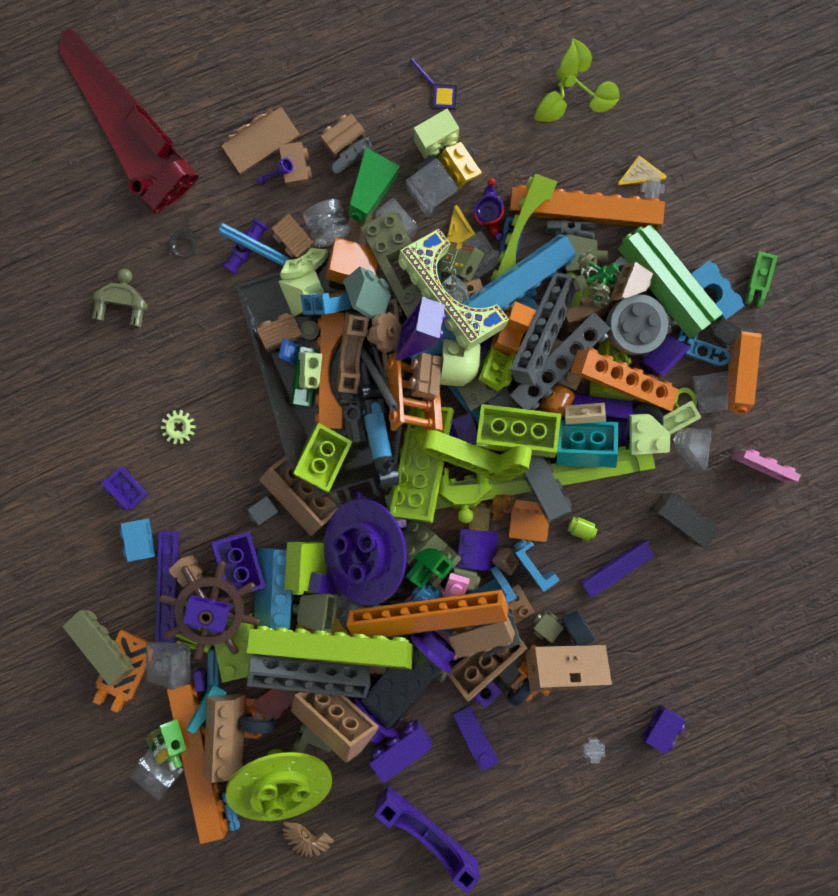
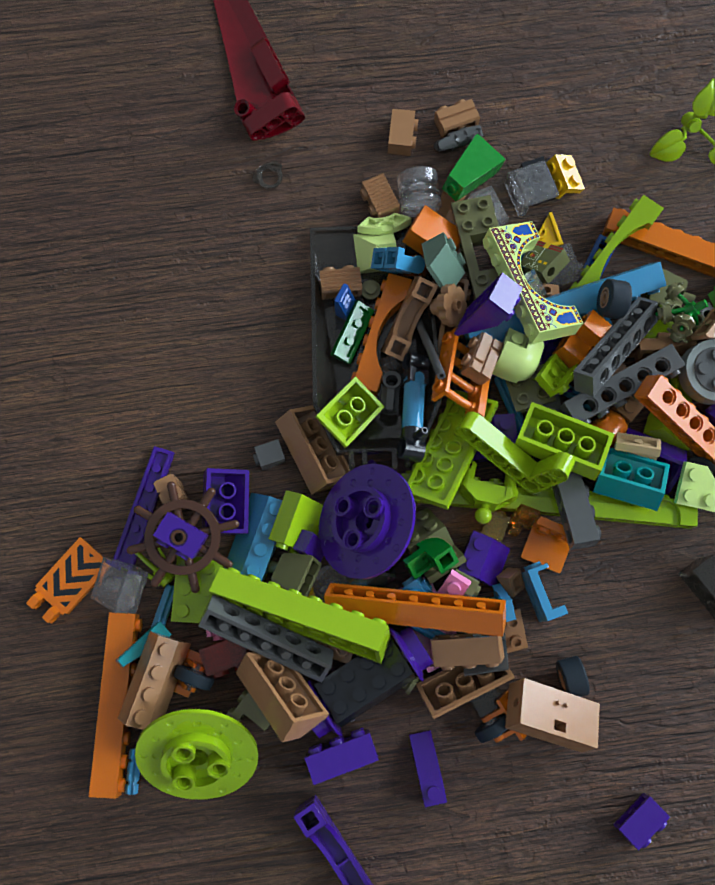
camera: 15 degrees right, 10 degrees down
(99, 647) = (52, 546): olive brick -> none
(121, 295) = (192, 205): olive connector -> none
(124, 489) = (134, 392): dark purple bracket -> none
(137, 540) = (130, 447): dark azure brick -> none
(154, 777) = (66, 702): clear slope -> none
(167, 744) = (90, 671): bright green torso -> none
(170, 427) = (212, 341): yellowish green gear -> none
(200, 679) = (147, 614): dark purple tile -> none
(238, 257) = (332, 192): dark purple piece -> none
(252, 244) = (341, 194): dark azure axle -> none
(259, 139) = (373, 101): medium nougat piece -> none
(283, 166) = (391, 127): dark purple hinge -> none
(305, 840) = (204, 830): medium nougat hair -> none
(309, 369) = (361, 324): yellowish green leg -> none
(436, 134) = (550, 138): yellowish green brick -> none
(443, 94) = (564, 110): piece -> none
(490, 210) = (585, 224): dark purple piece -> none
(495, 690) = (462, 720): dark purple brick -> none
(531, 286) = (614, 299): none -> black wheel
(546, 626) = (538, 665): olive brick -> none
(568, 227) = (671, 265): dark grey hinge -> none
(582, 528) = (602, 570): lime brick -> none
(594, 750) = (557, 822): clear gear -> none
(617, 568) = (630, 624): dark purple panel -> none

